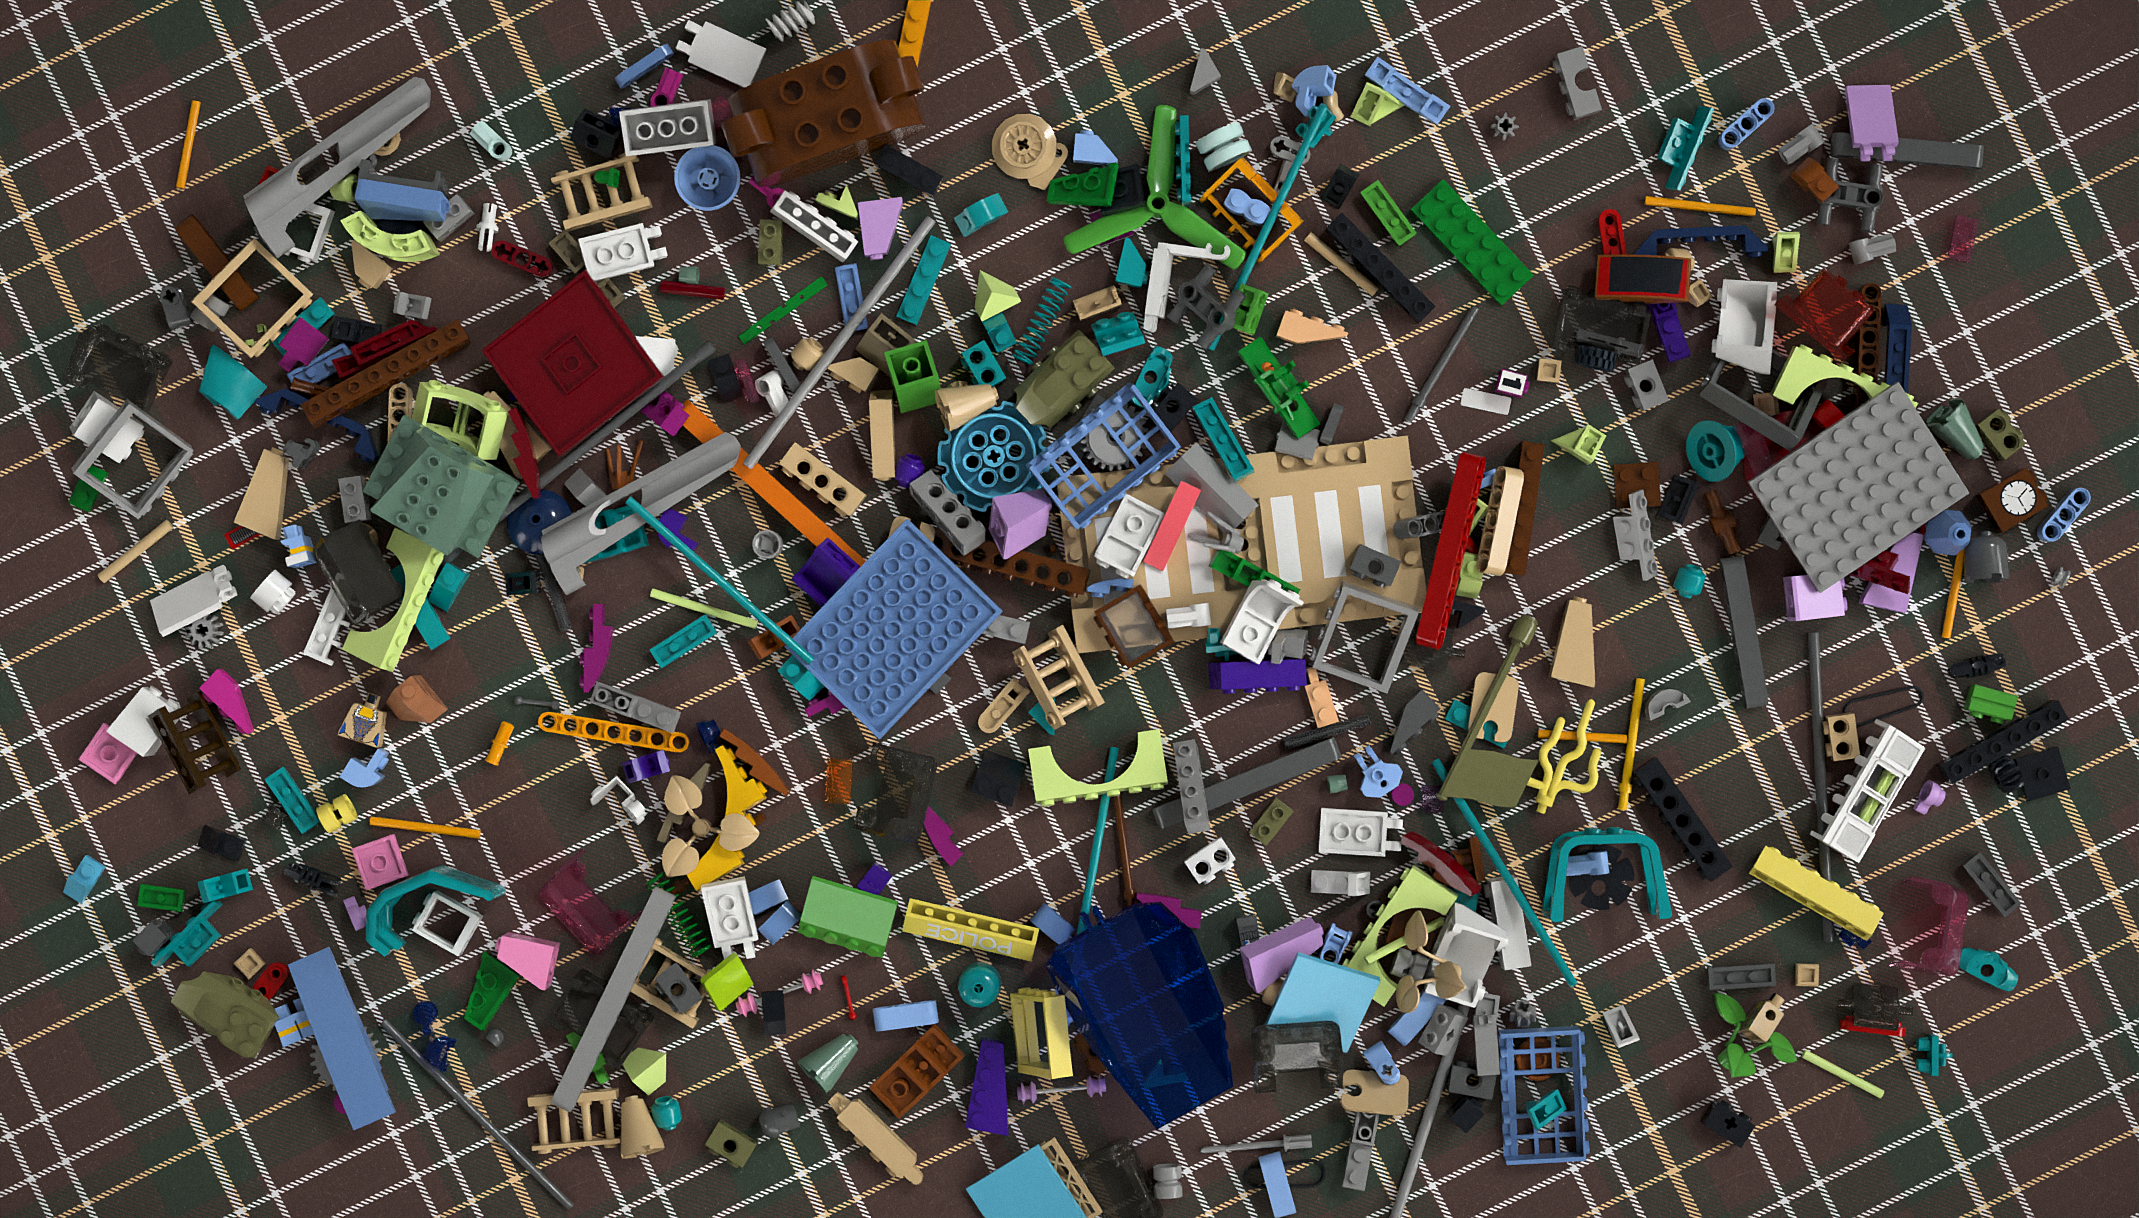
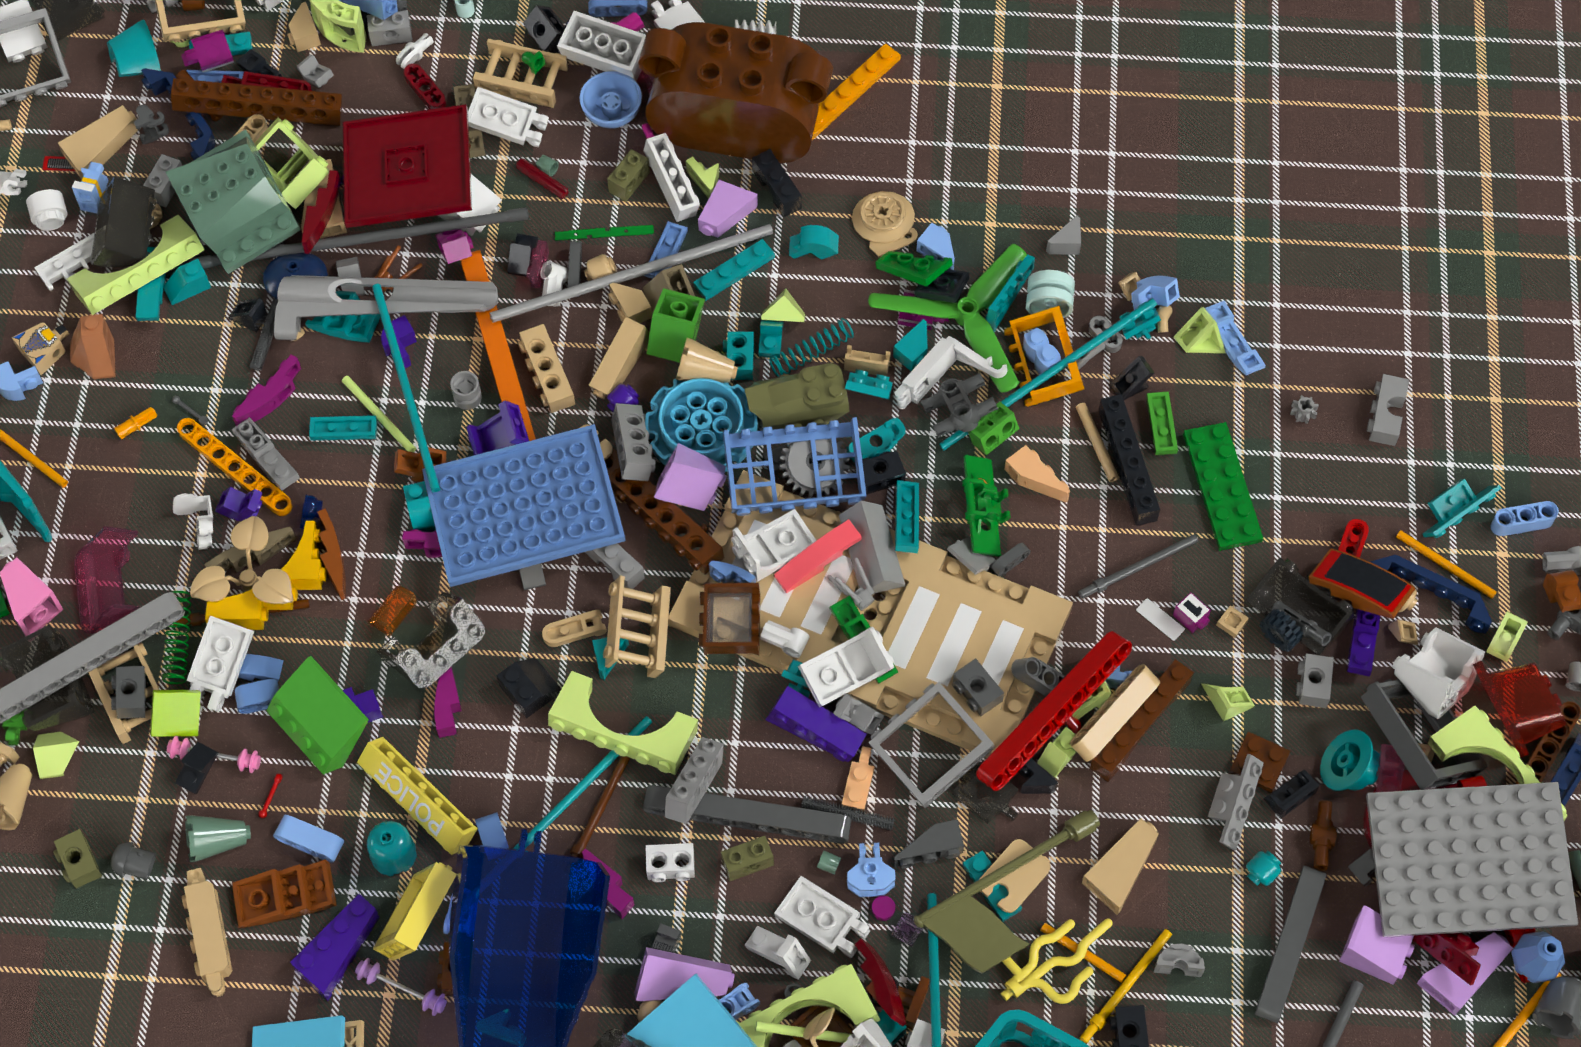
camera: 25 degrees right, 25 degrees down
(666, 1113) = (42, 798): teal head -> none

